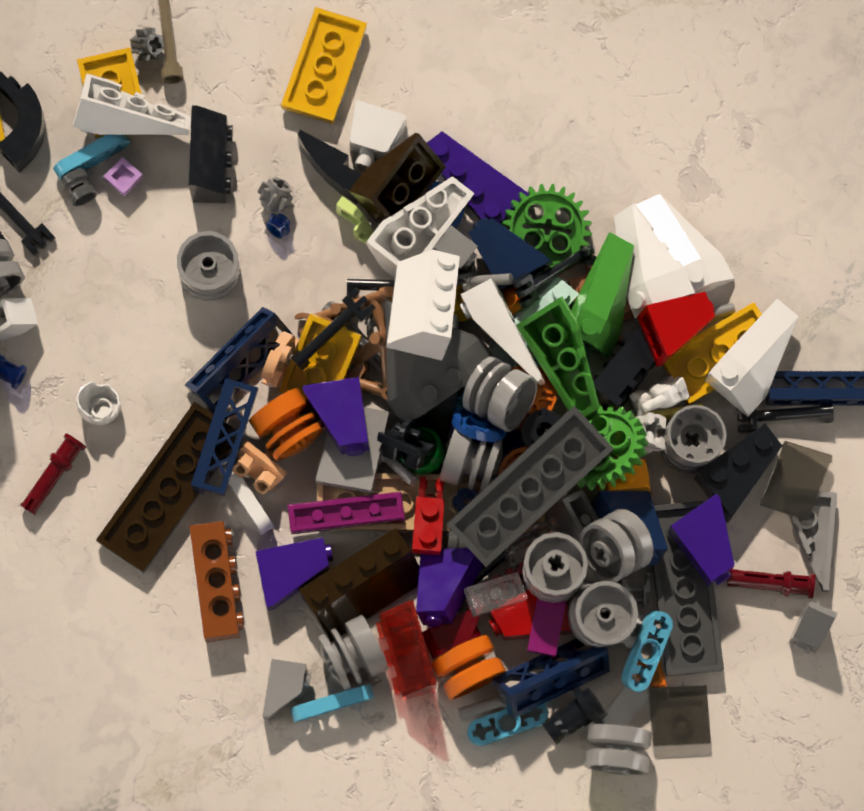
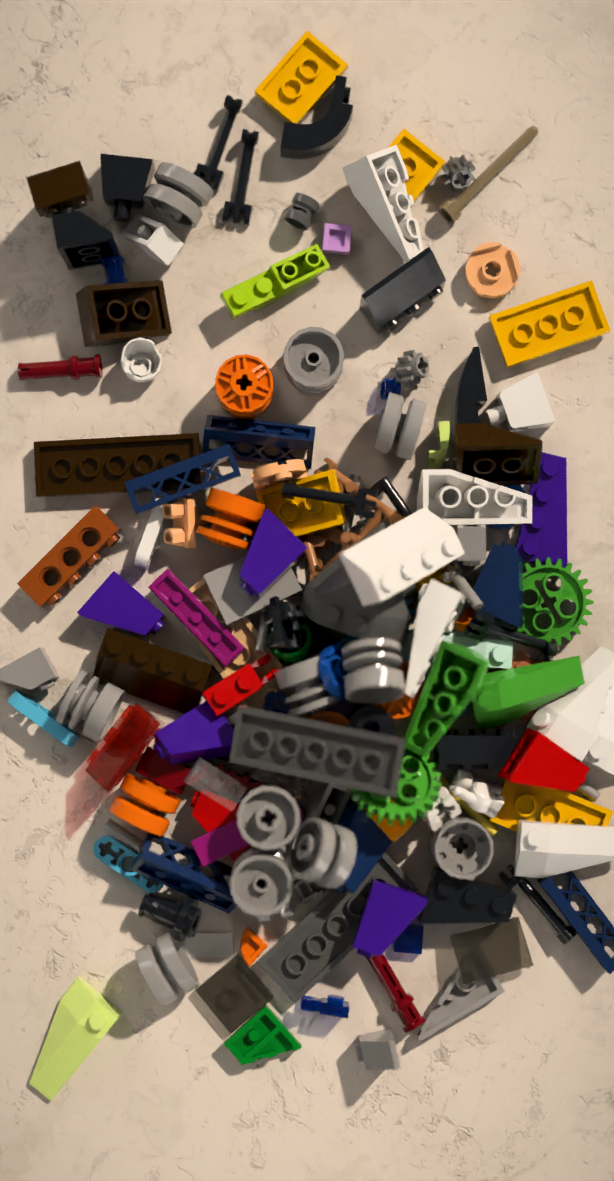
camera: 55 degrees right, 10 degrees up
(46, 390) = (122, 312): none -> dark brown slope
(91, 154) = (334, 200): medium azure beam -> none
(120, 249) = (276, 282): none -> lime slope
(184, 350) = (256, 398): none -> orange wheel
(239, 63) = (498, 256): none -> light nougat plate
(316, 236) = (399, 426): none -> light grey wheel
(658, 646) = (285, 935): medium azure beam -> none
(732, 719) = (261, 1038): none -> green wing
(740, 540) = (410, 940): none -> clear blue plate
(748, 640) = (332, 1006): none -> clear blue plate

